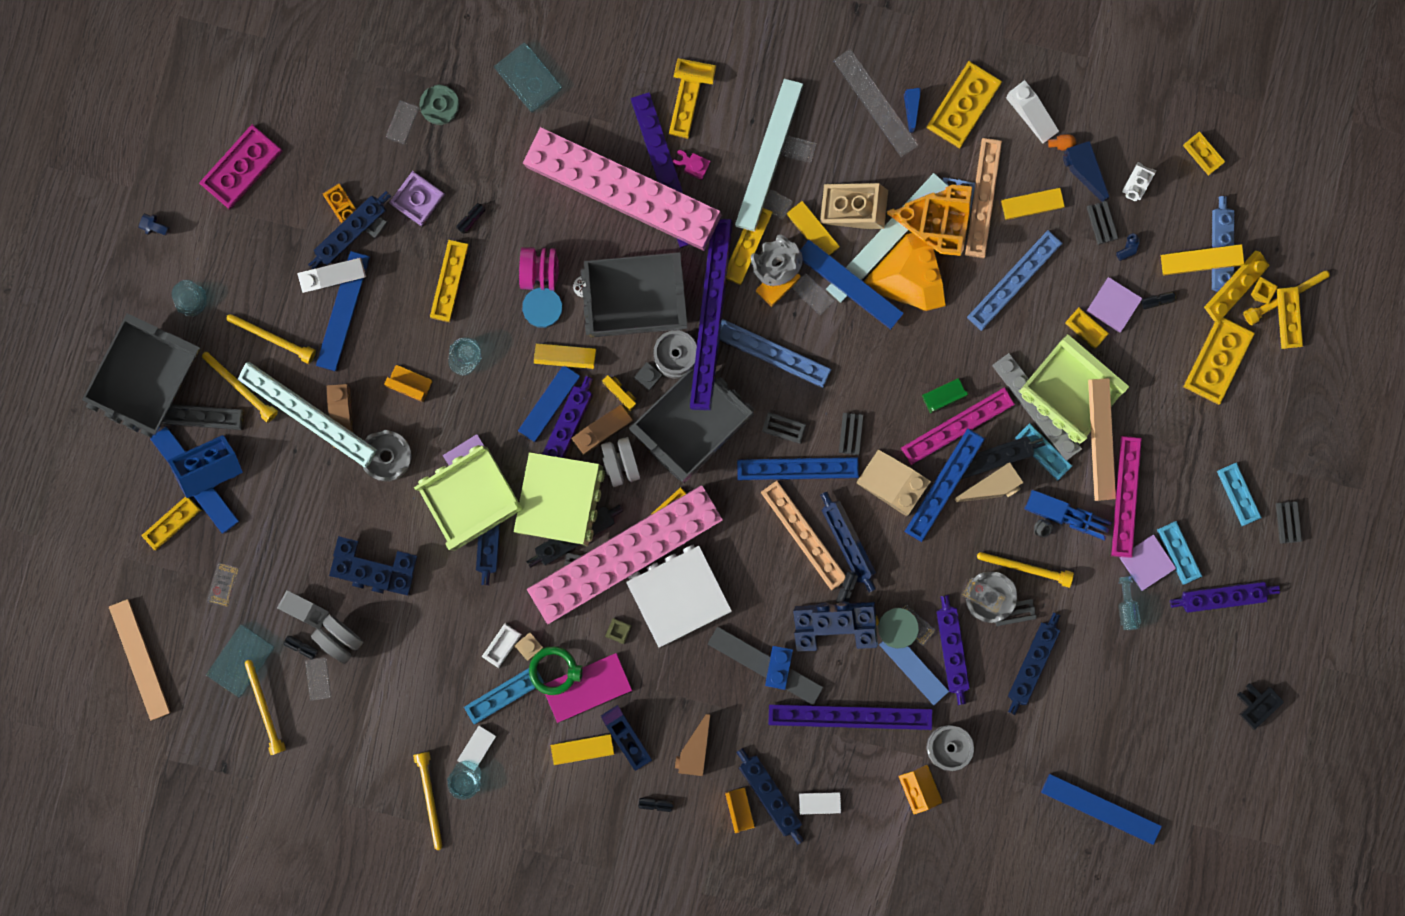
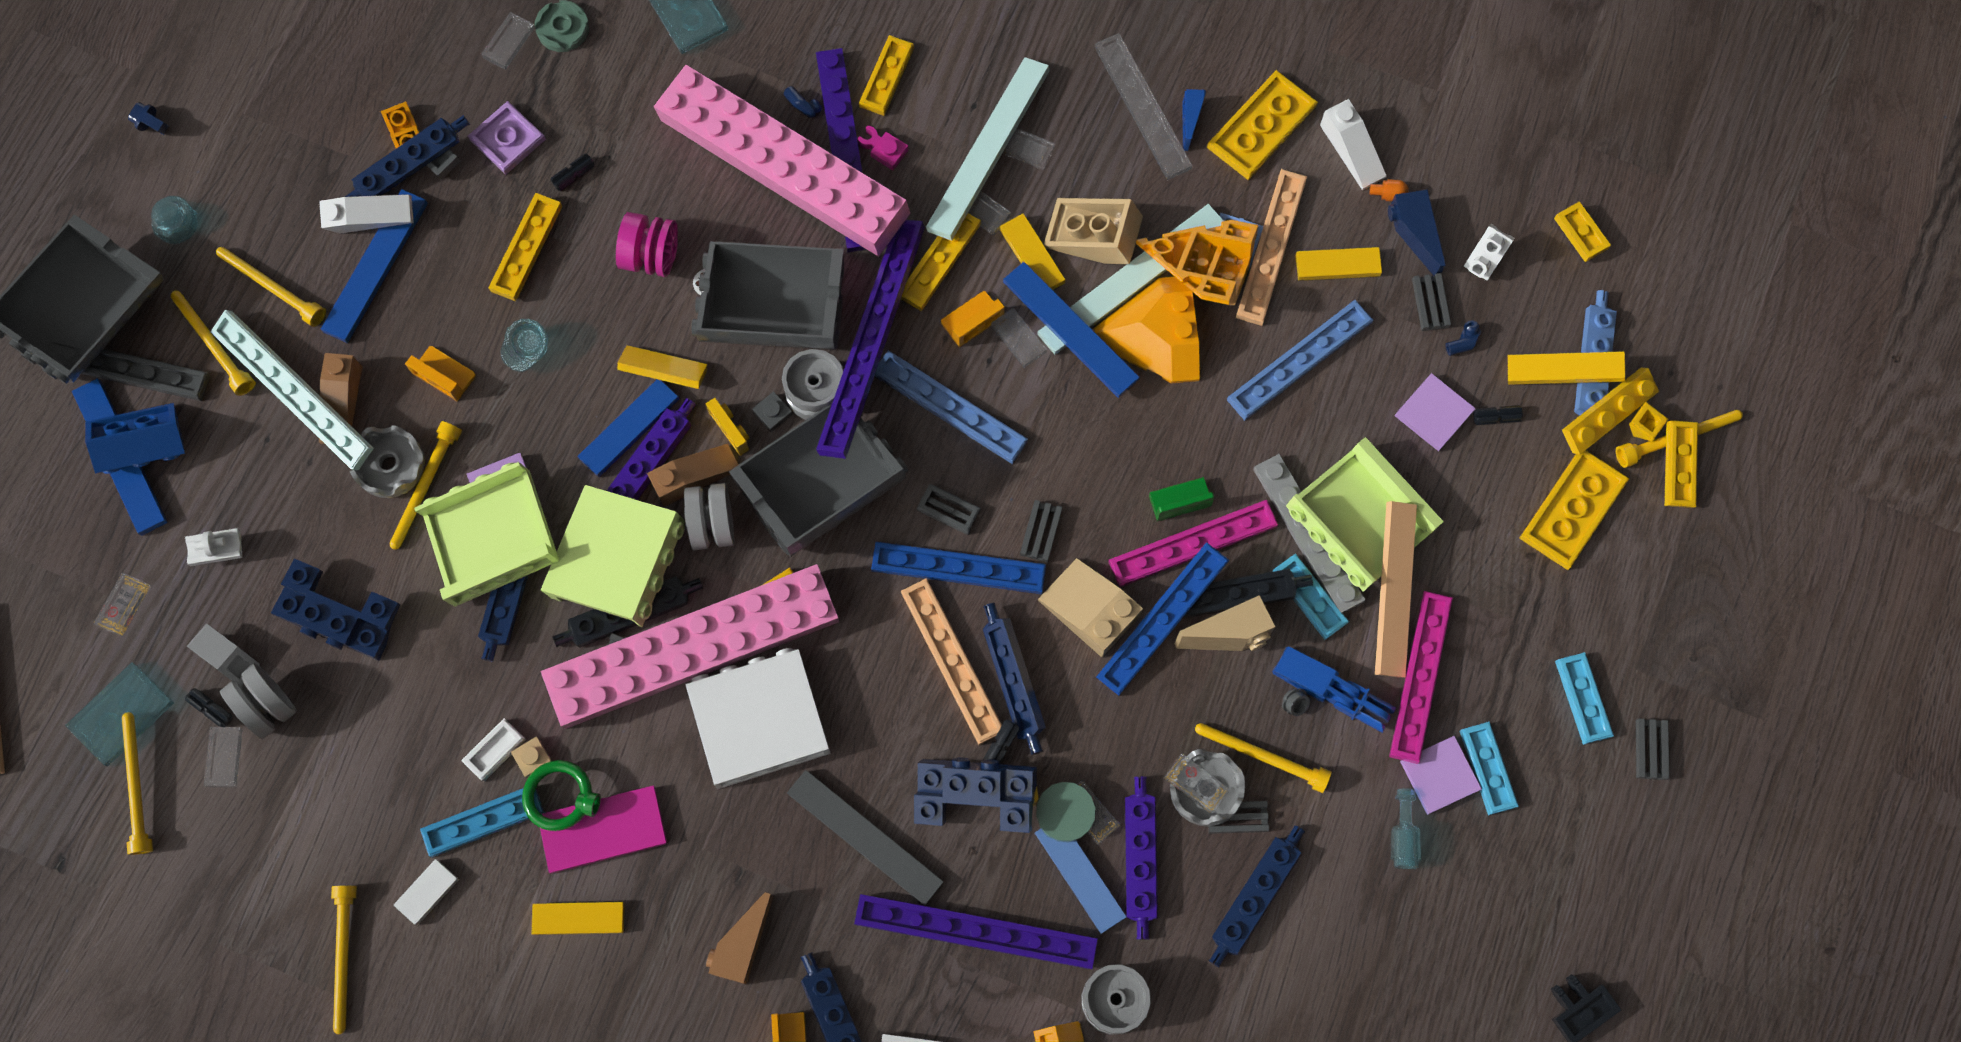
camera: 10 degrees right, 10 degrees down
(171, 523) = (72, 509): yellow tile -> none
(240, 167) = (282, 65): dark pink tile -> none
(279, 536) = (214, 547): none -> white hips
(422, 429) = (446, 436): none -> yellow piece
(464, 780) = (396, 935): clear light blue hat -> none
(542, 307) = (645, 300): dark azure tile -> none
(618, 631) = (663, 755): olive tile -> none
(626, 140) = (798, 101): none -> dark blue arm
(626, 737) = (643, 910): dark blue slope -> none
(651, 804) = (673, 1018): black piece -> none
(695, 71) = (907, 31): yellow tile -> none
(771, 254) = (976, 283): light grey plate -> none
(778, 667) = (883, 842): blue plate -> none
(1086, 328) = (1392, 438): yellow tile -> none
(1225, 596) = (1548, 841): dark purple plate -> none

